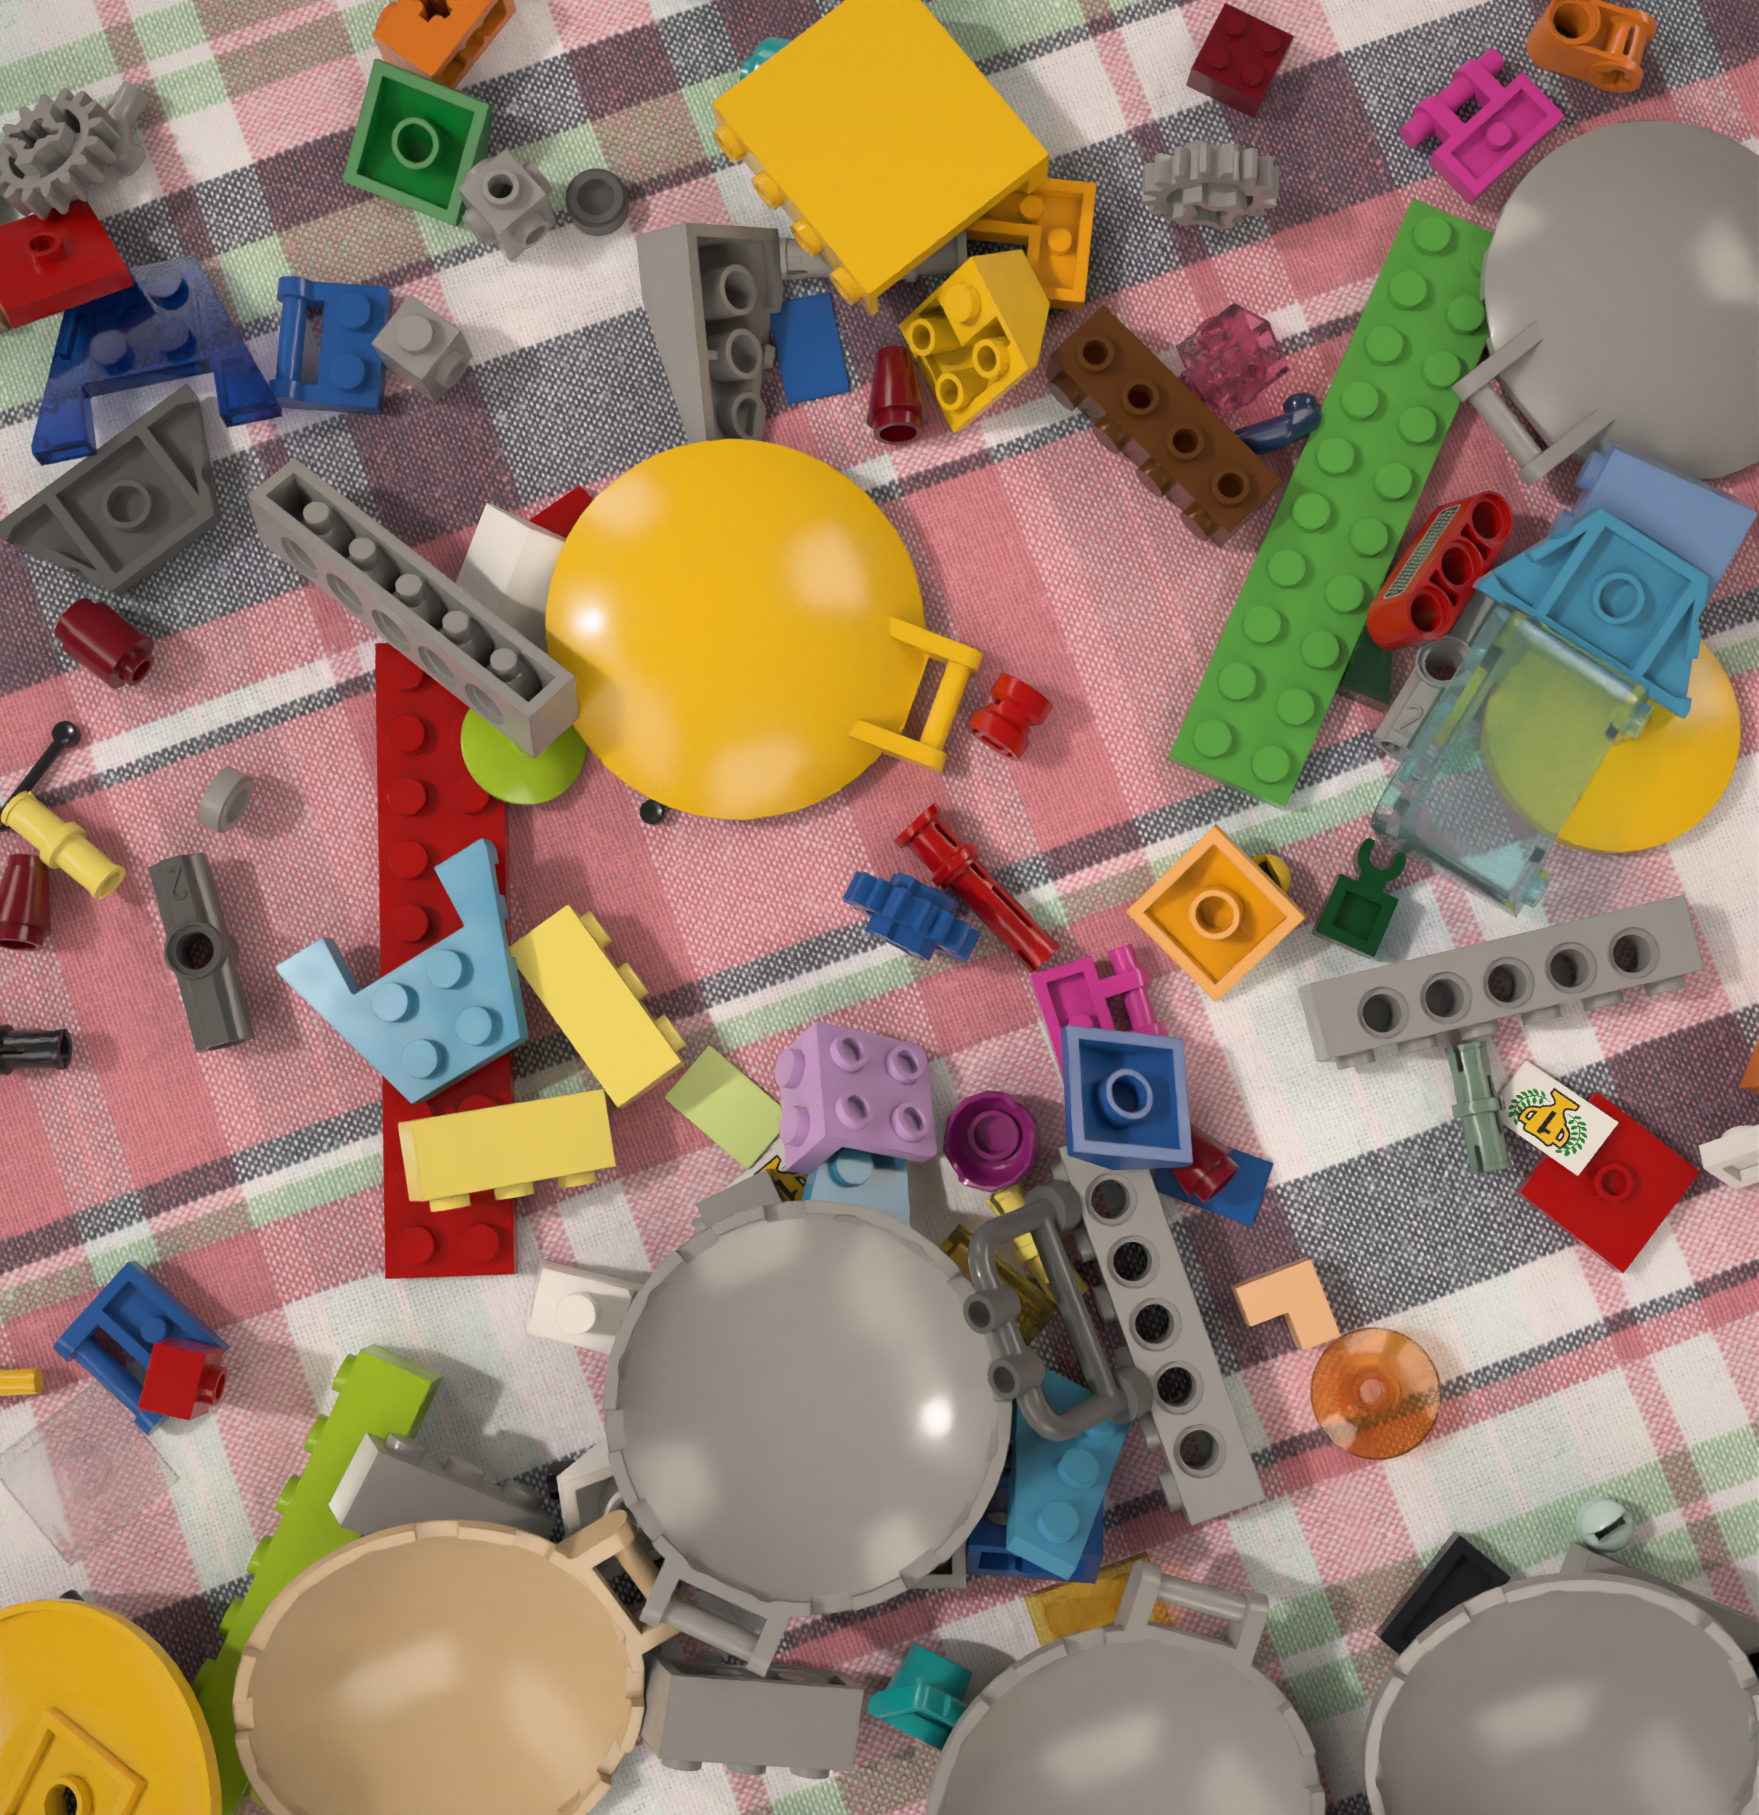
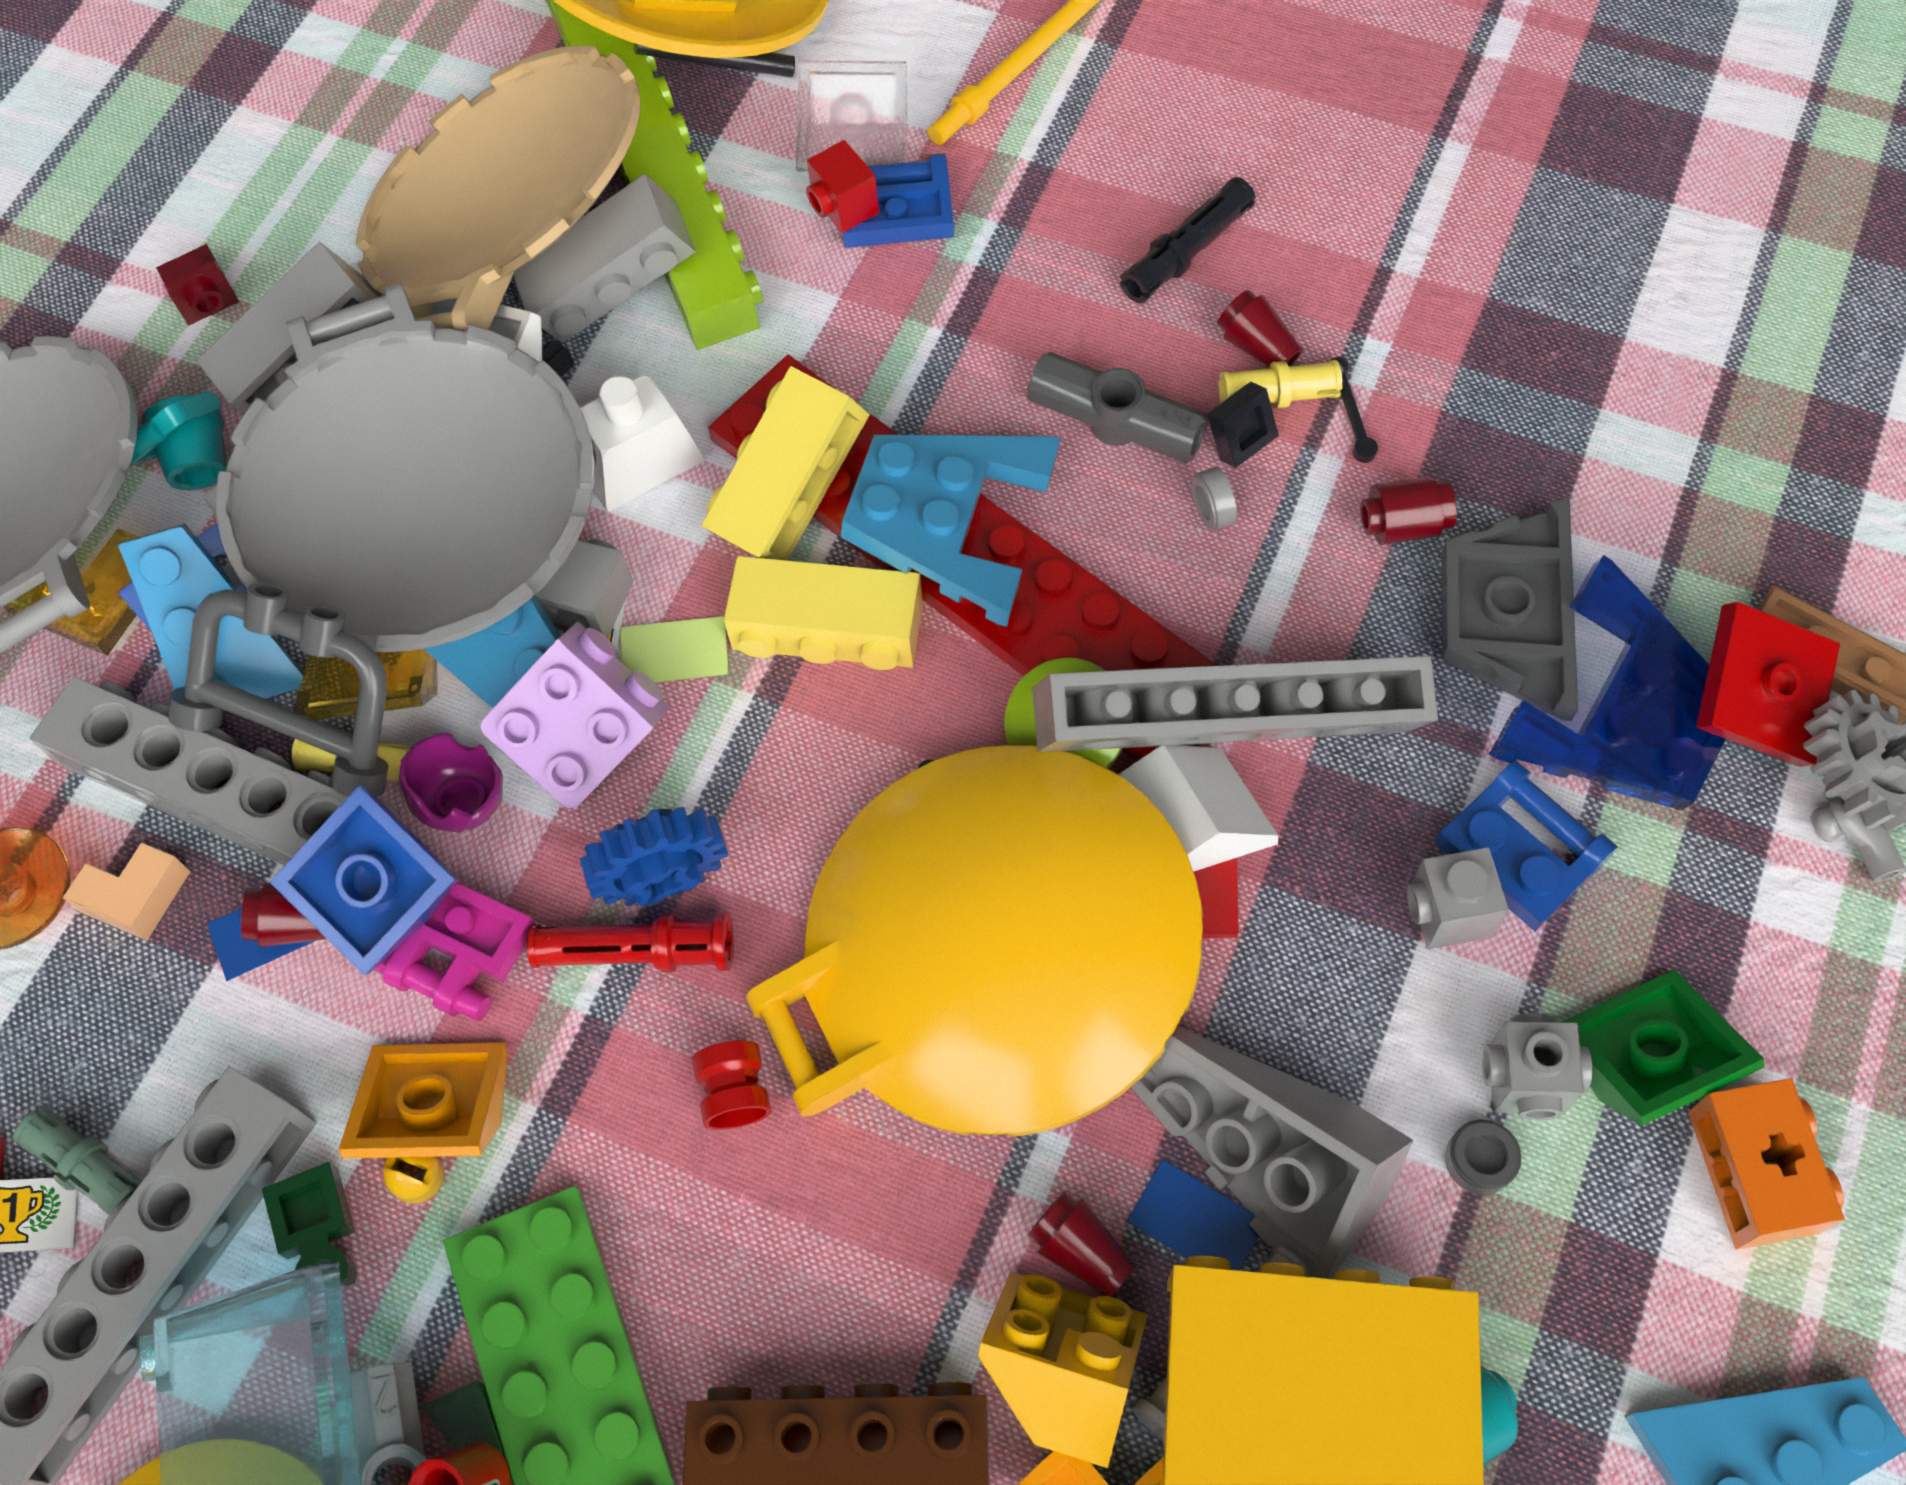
camera: 140 degrees right, 20 degrees down
(132, 838) = (1243, 424): none -> black plate

